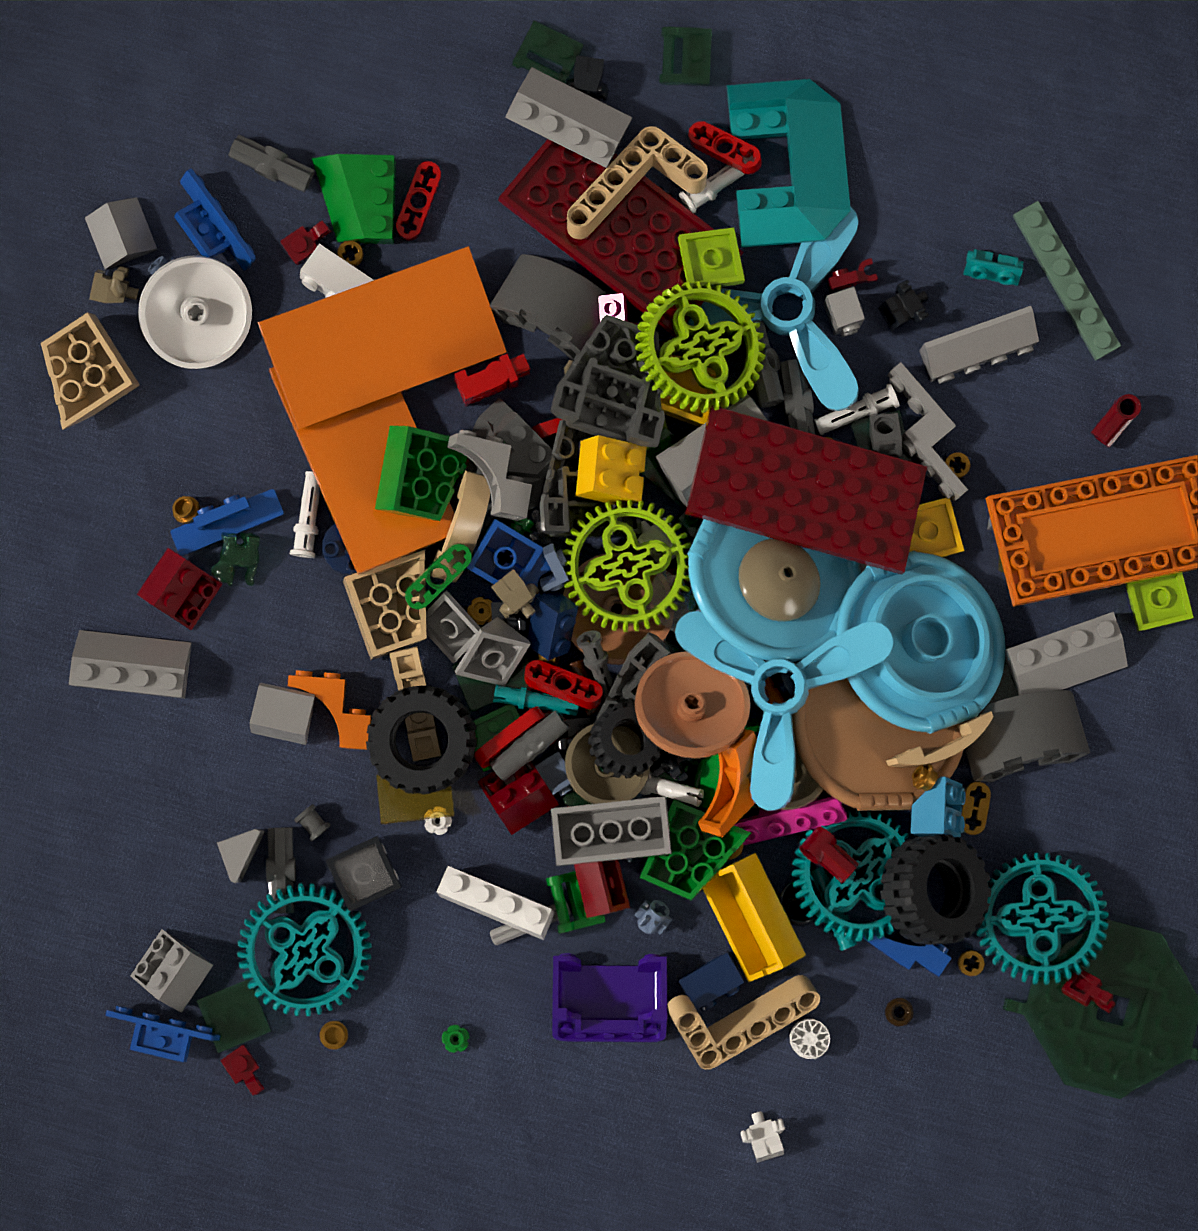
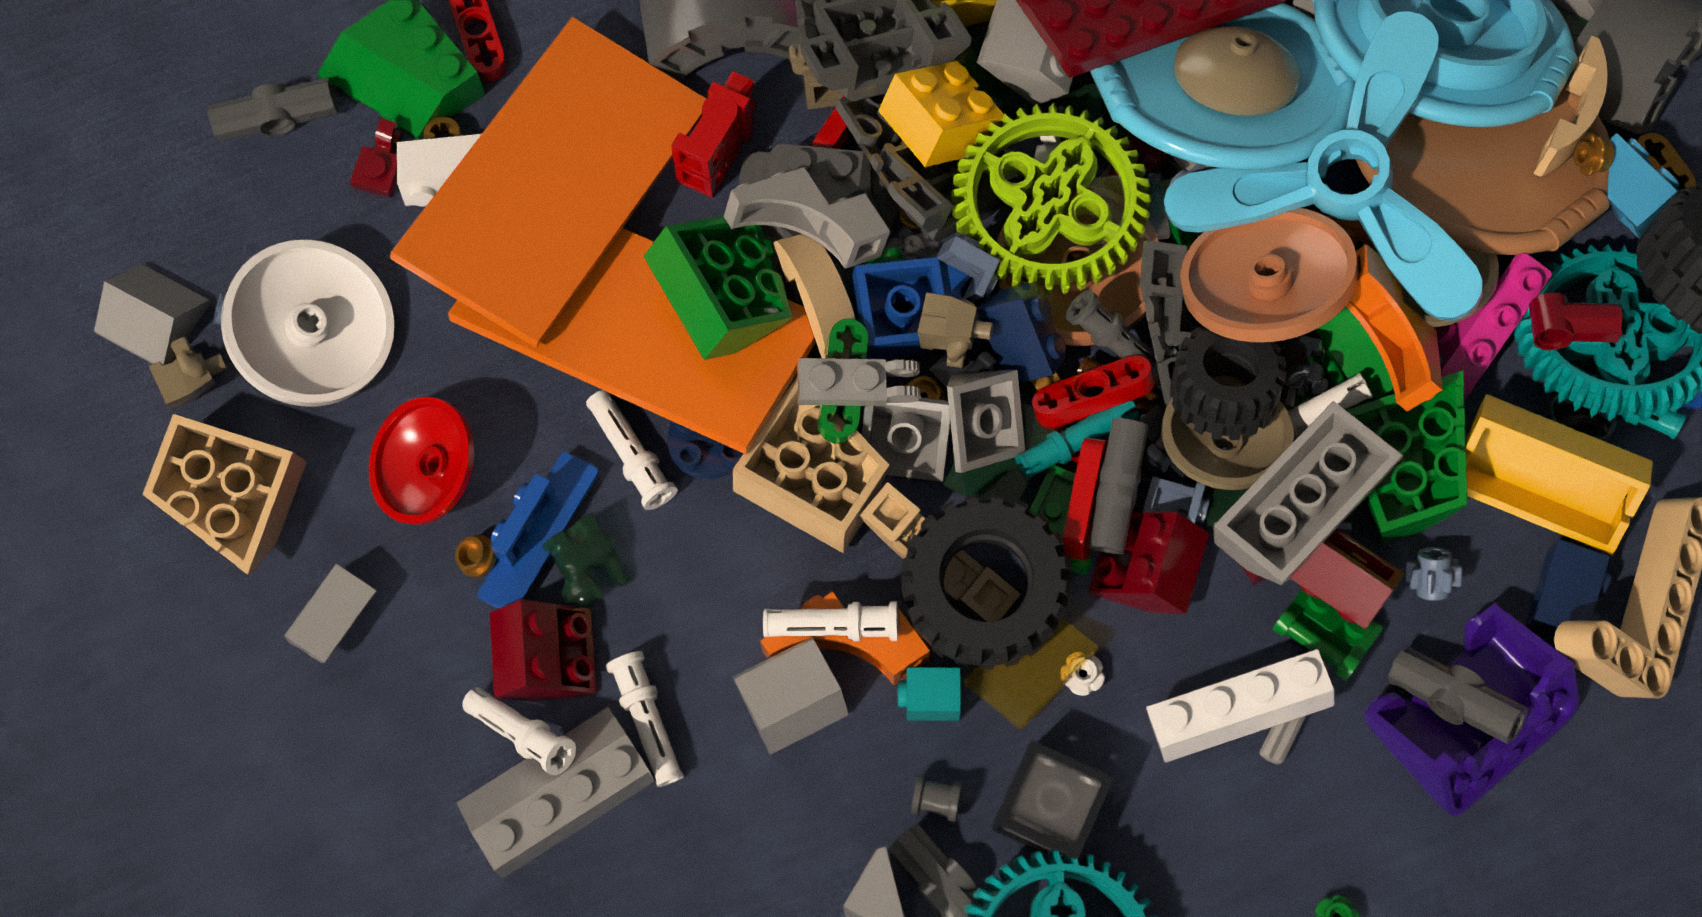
camera: 30 degrees left, 15 degrees down
(89, 482) = (329, 614): none -> light grey hinge
(137, 631) = (530, 737): none -> white pin
(186, 432) = (421, 461): none -> red dish
(194, 699) = (639, 698): none -> white pin
(209, 226) = (250, 222): blue bracket -> none
(339, 705) = (853, 622): none -> white pin
(352, 769) = (931, 694): none -> teal brick
(438, 583) = (854, 381): none -> light grey hinge
(606, 985) = (1458, 695): none -> dark grey piece

